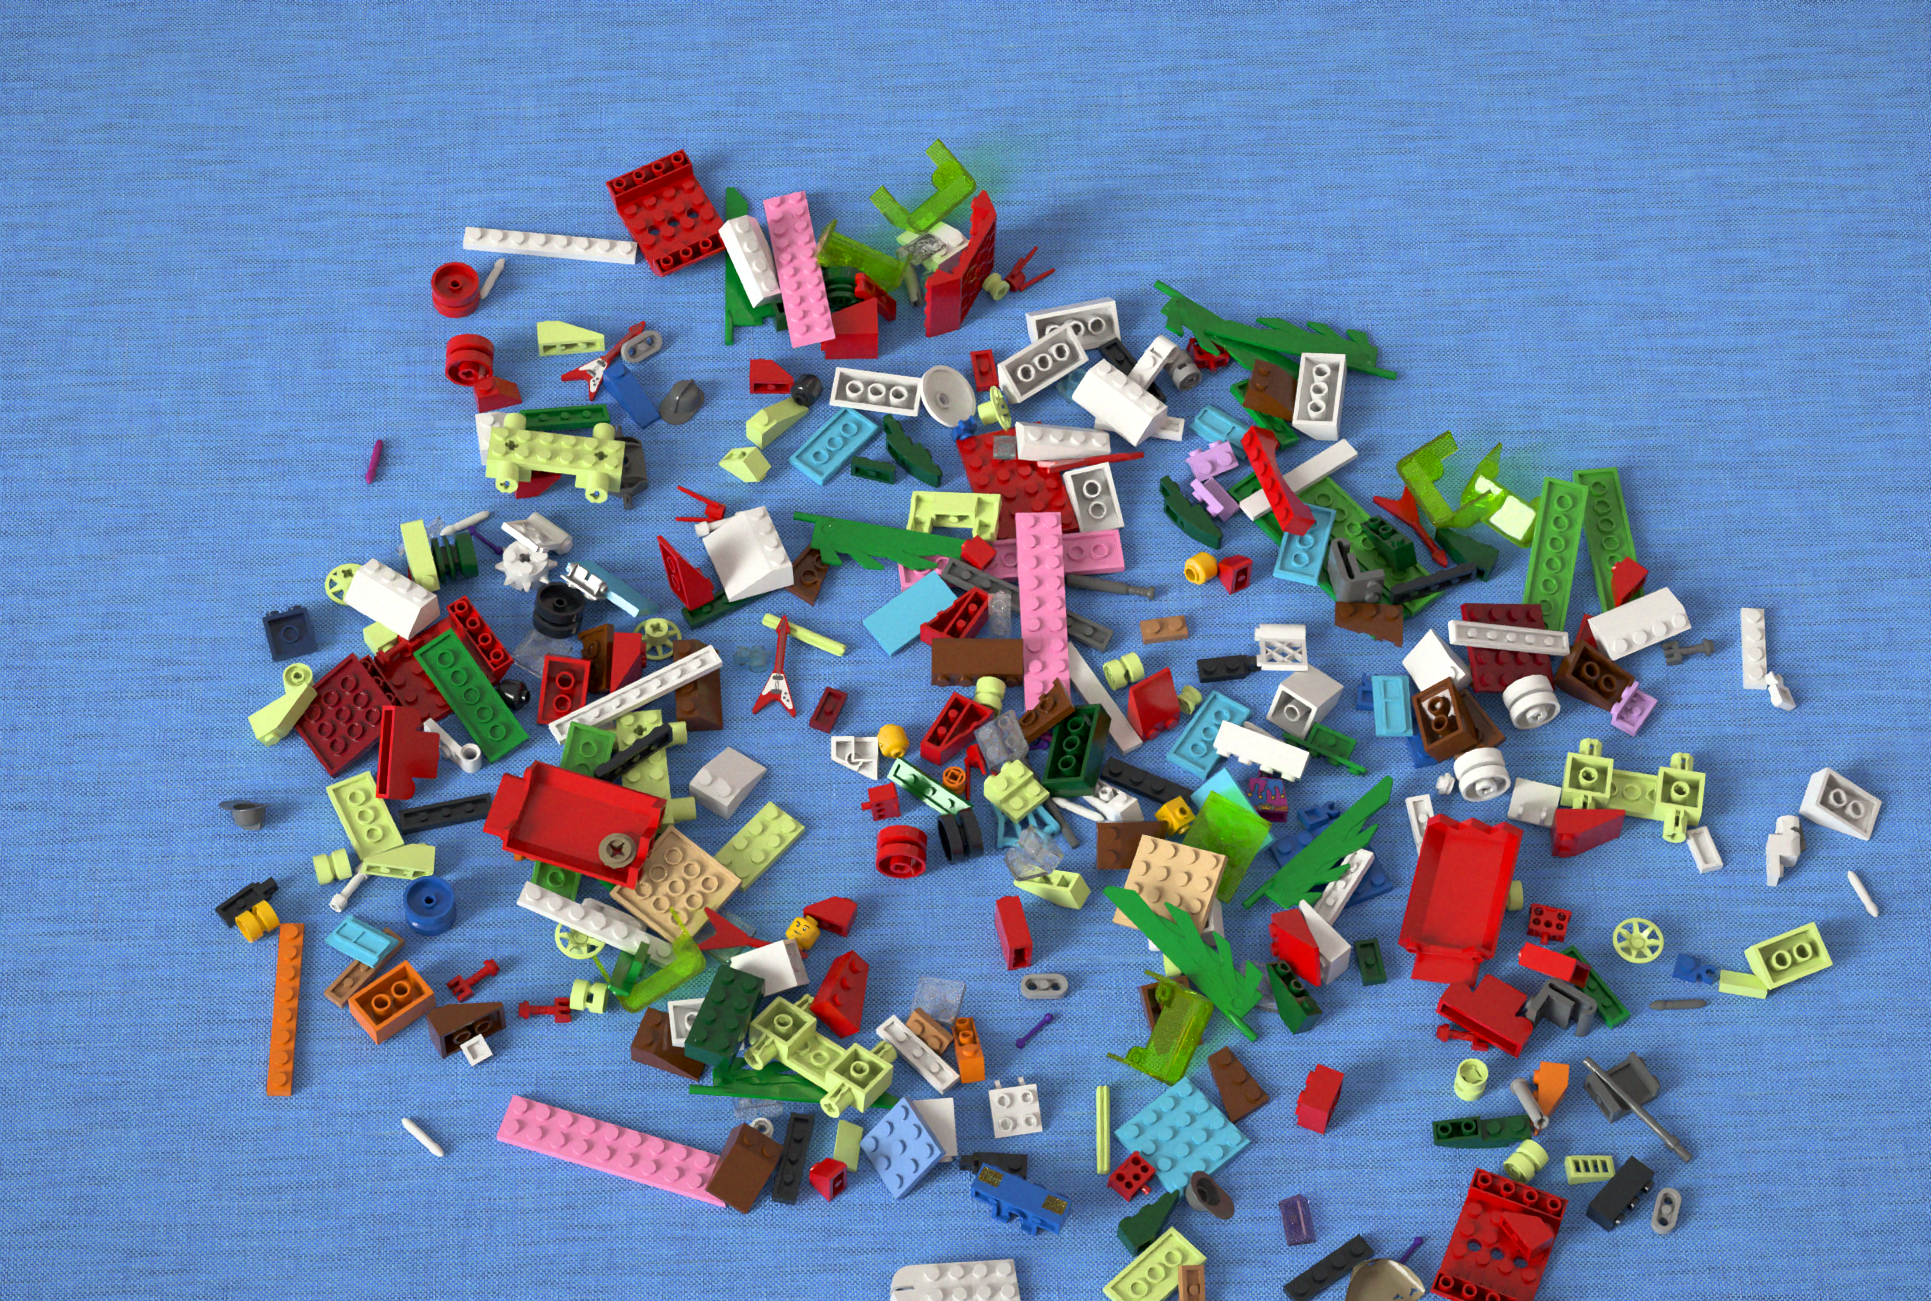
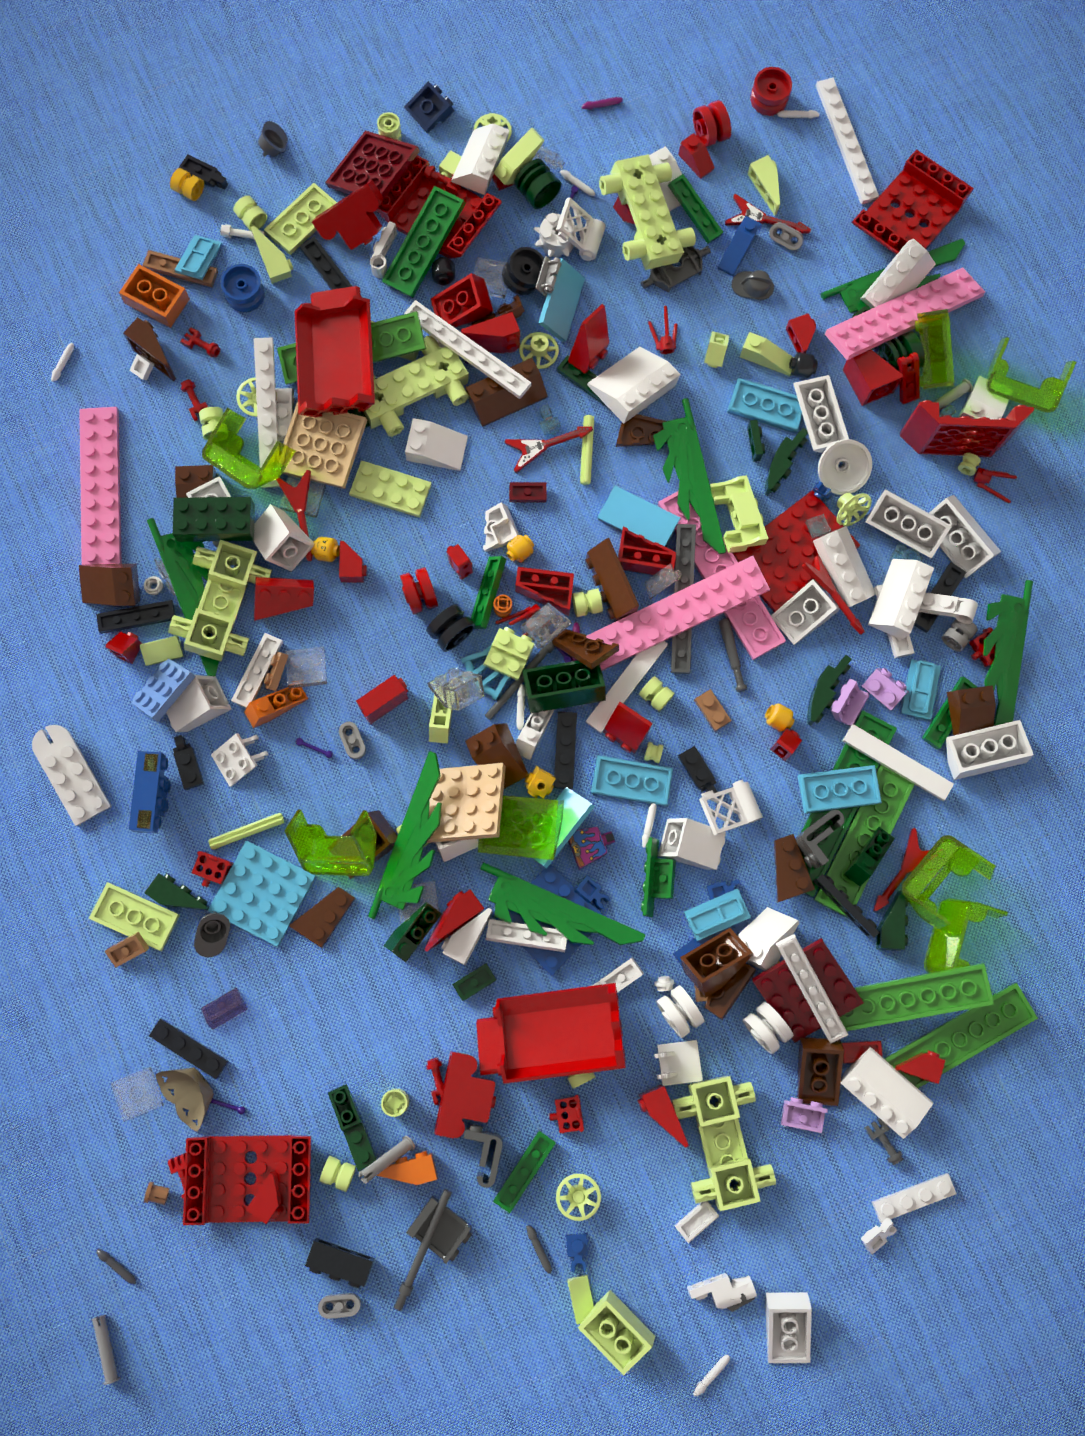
camera: 65 degrees right, 20 degrees up
(280, 716) = (355, 128): yellowish green slope -> none
(285, 1009) = (130, 233): orange plate -> none
(617, 841) = (321, 382): dark tan gear -> none
(628, 969) = (230, 437): green bracket -> none
(635, 754) = (415, 369): black plate -> none
(704, 528) = (647, 343): white bar -> none
(922, 247) = (972, 394): clear piece -> none
(978, 553) = (707, 543): red brick -> none
(984, 370) = (892, 482): red plate -> none
(1261, 750) = (624, 826): white slope -> none
(1288, 508) = (855, 767): red arch -> none
(1295, 341) = (1031, 711): green animal -> none
(1319, 1098) = (327, 988): red brick -> none
(1554, 964) = (520, 1135): brick -> none
(1580, 1161) = (355, 1210): yellowish green slope -> none

